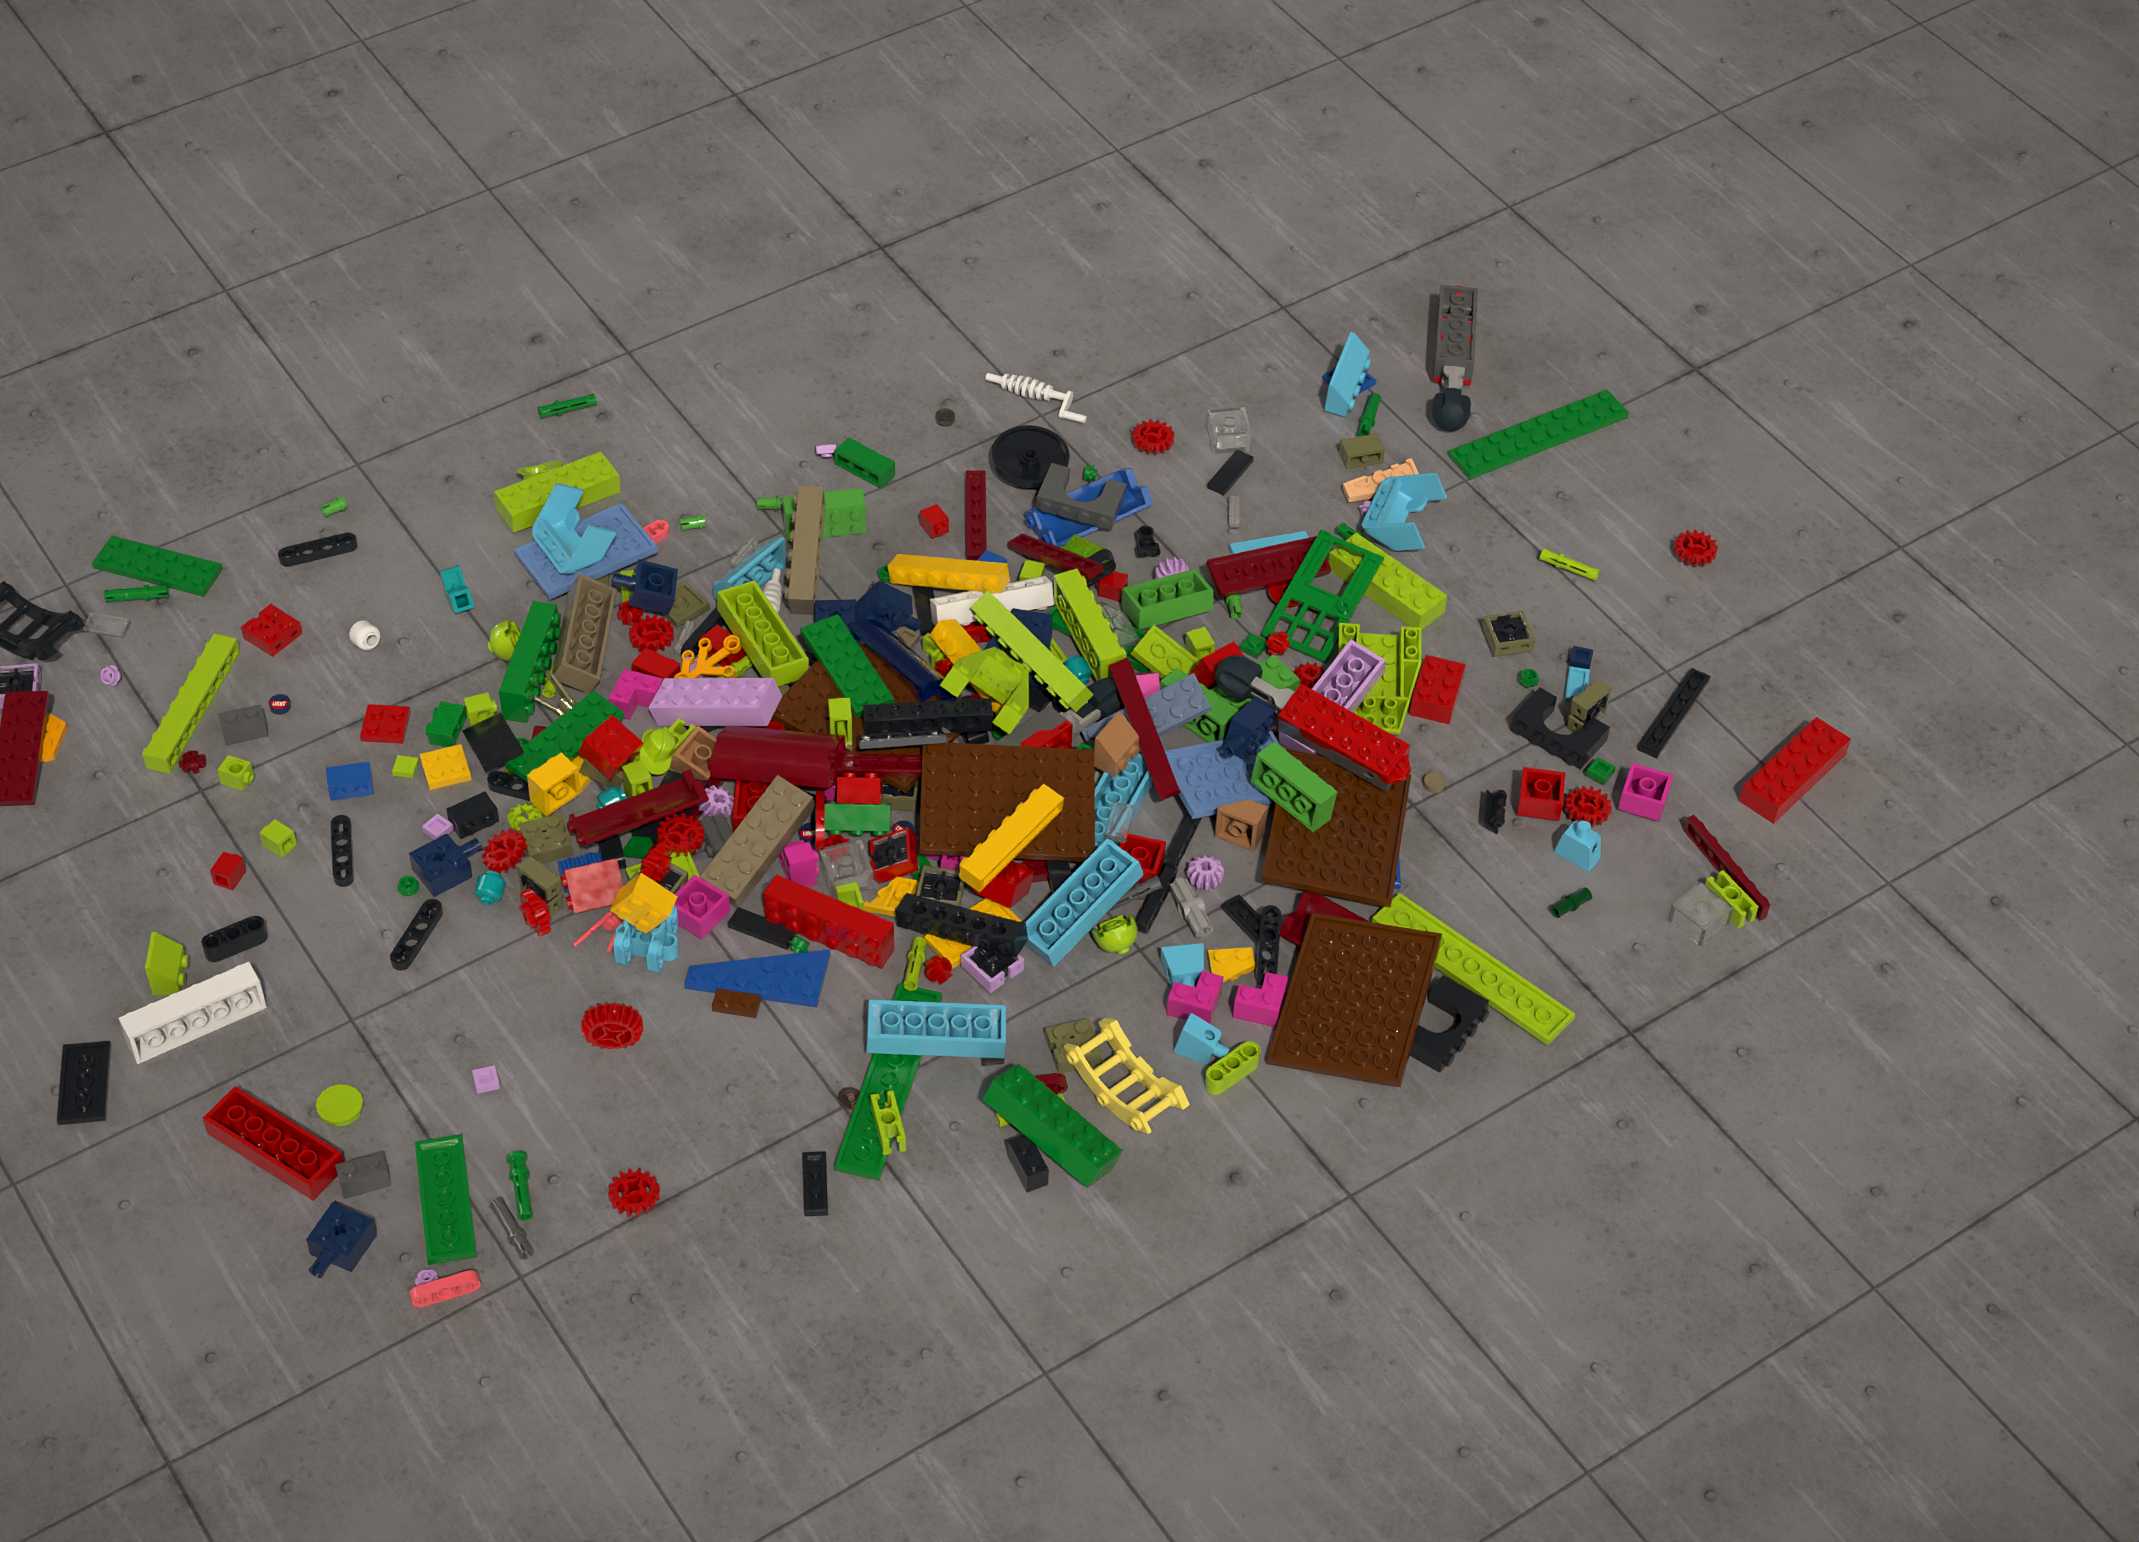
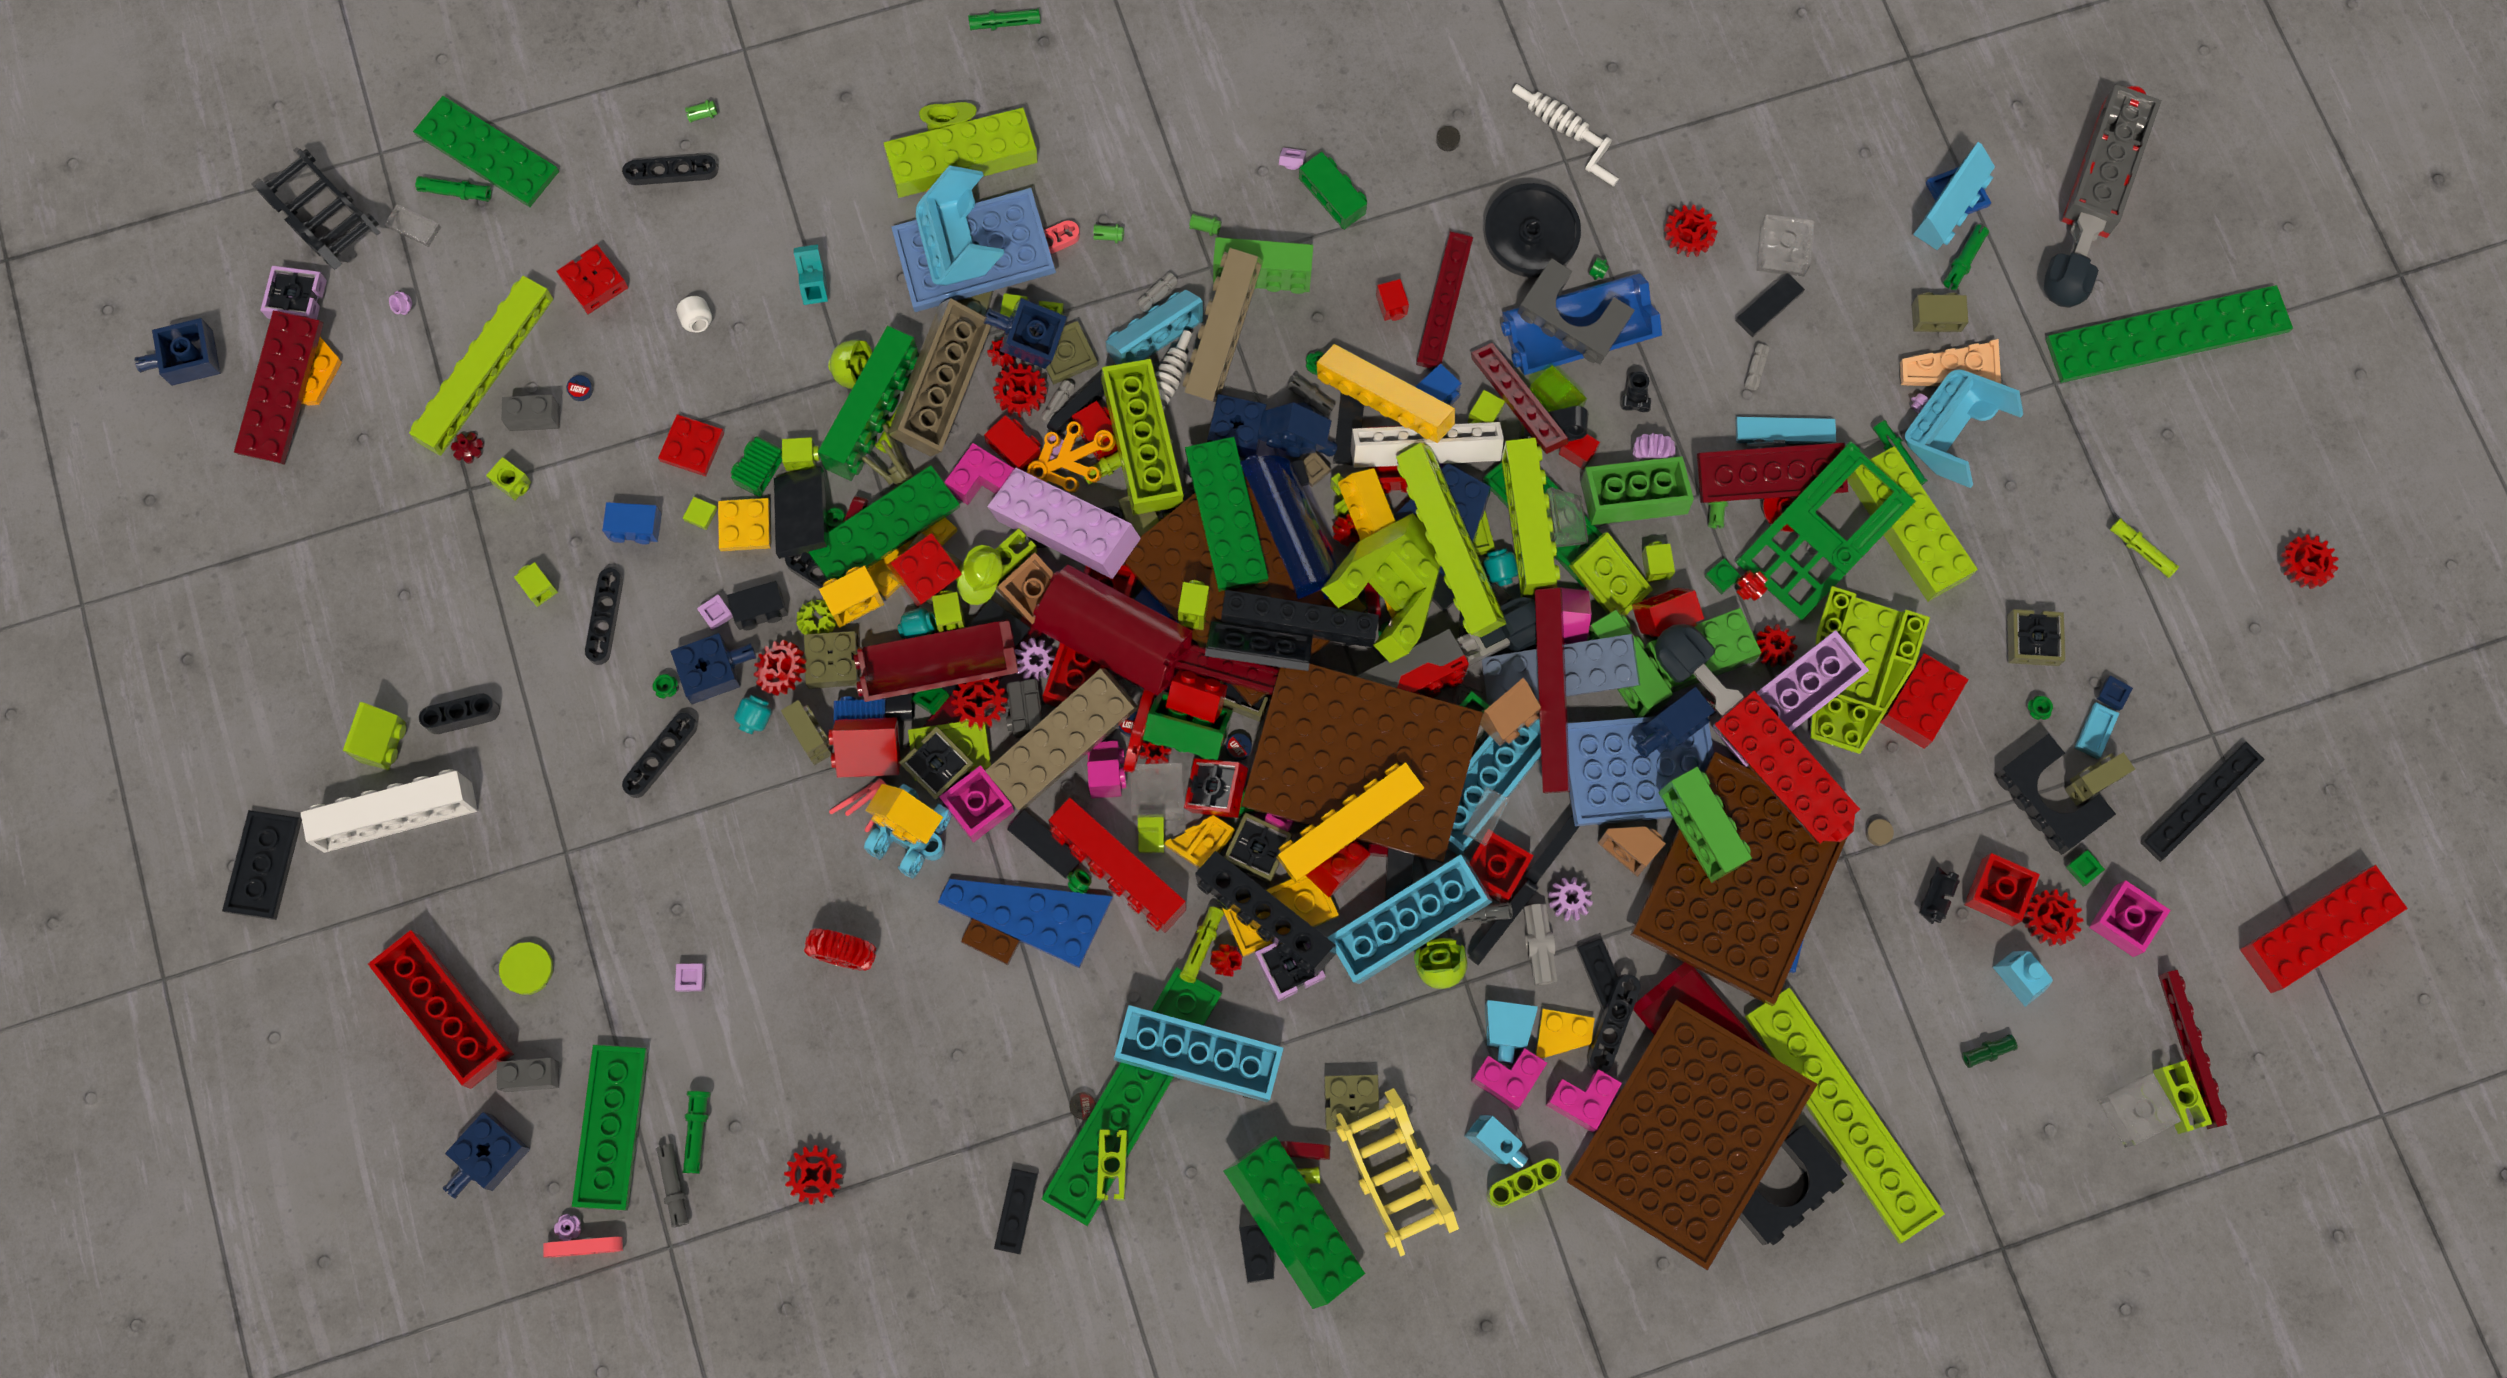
camera: 15 degrees right, 25 degrees up
(228, 870) = (472, 615): red brick -> none
(535, 912) = (792, 768): red gear -> none
(657, 862) = (932, 759): red gear -> none

